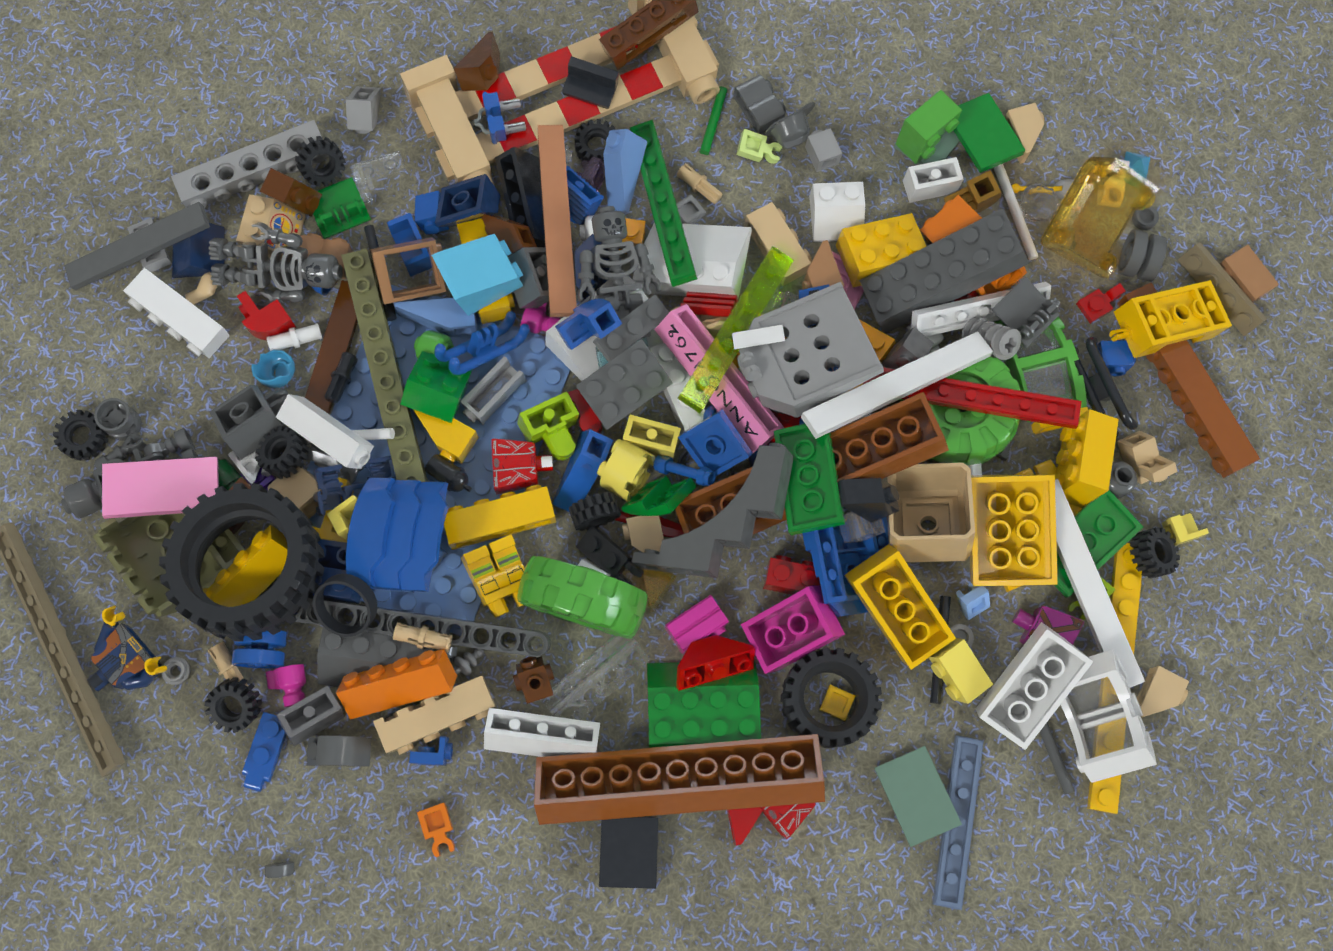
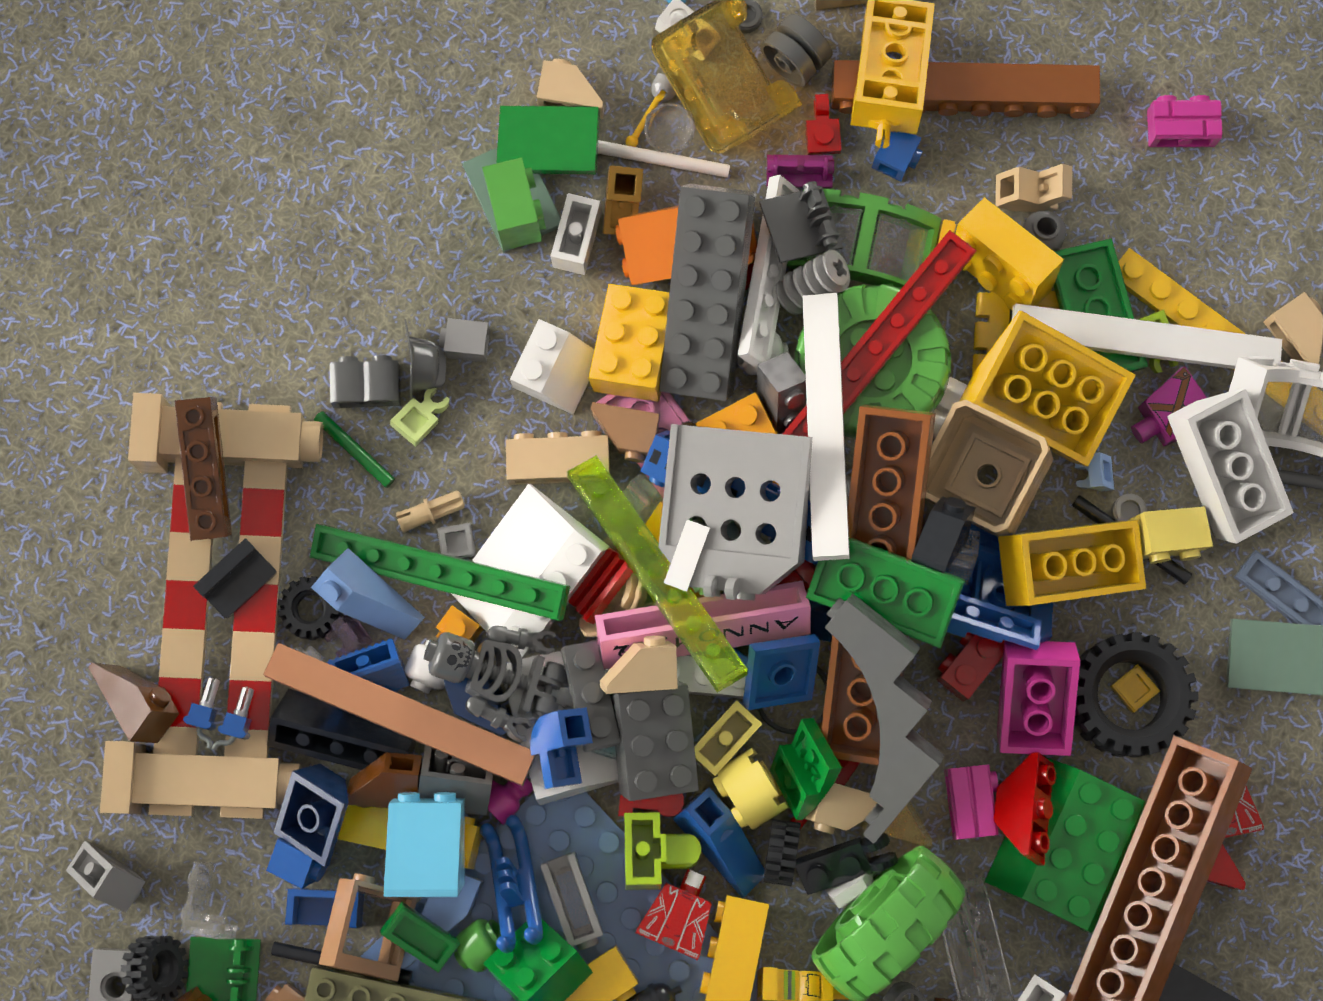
camera: 55 degrees left, 5 degrees up
(419, 302) = (419, 937): none -> green tile
(668, 347) = (643, 667): none -> tan slope
(703, 476) = (808, 704): blue bar -> none
(1069, 309) = (801, 169): none -> magenta hinge
(1102, 386) = (926, 188): black piece -> none
(1154, 552) = (1150, 257): black tyre -> none
(1183, 529) = (1132, 194): light yellow panel -> none
(1257, 540) = (1184, 122): none -> dark pink brick

